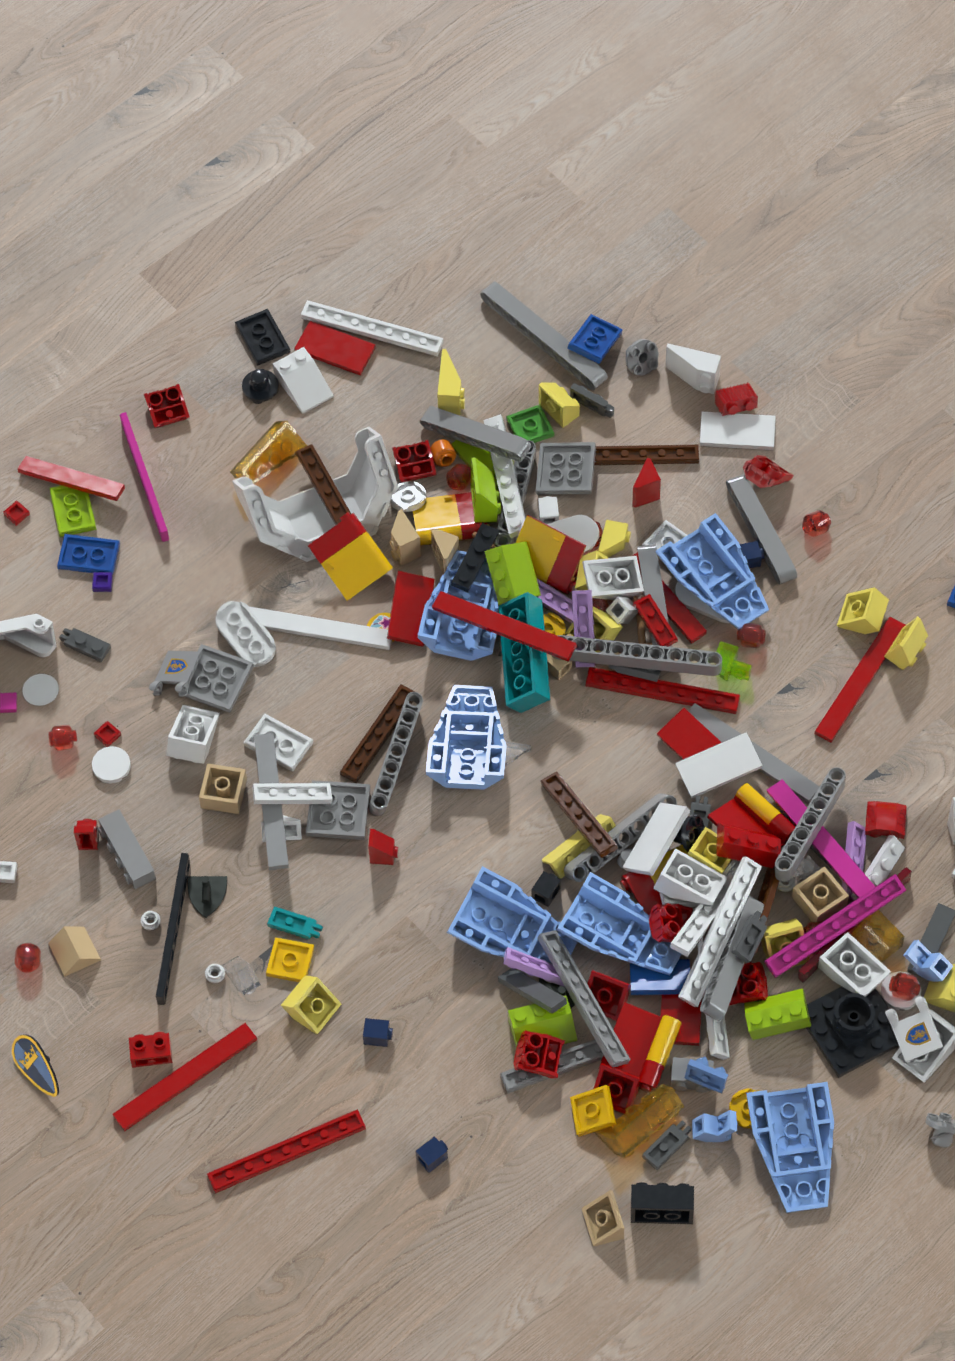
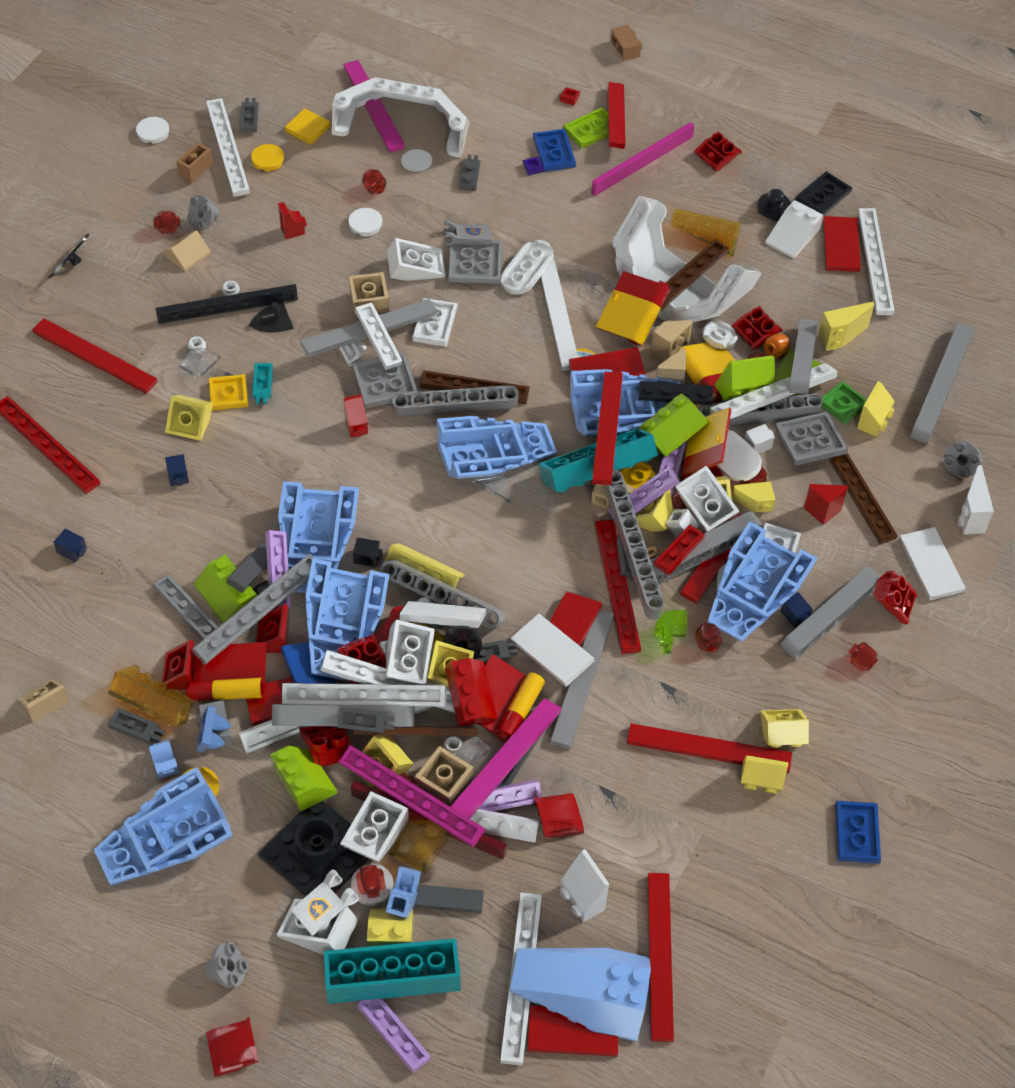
camera: 65 degrees right, 5 degrees down
(34, 917) = (202, 212): none -> light grey plate
(107, 734) = (393, 211): red tile -> none
(127, 849) = (289, 253): light grey brick -> none
(150, 1049) = (109, 323): red brick -> none
(538, 1054) = (190, 594): red slope -> none
(579, 814) = (449, 552): reddish brown tile -> none
(591, 400) = (895, 439): dark grey hinge -> none
(592, 1110) = (150, 654): yellow tile -> none
(595, 339) = (961, 419): blue tile -> none
(662, 1203) = (67, 735): black brick -> none
(736, 399) = (962, 548): red brick -> none
(807, 831) = (503, 732): light grey beam -> none

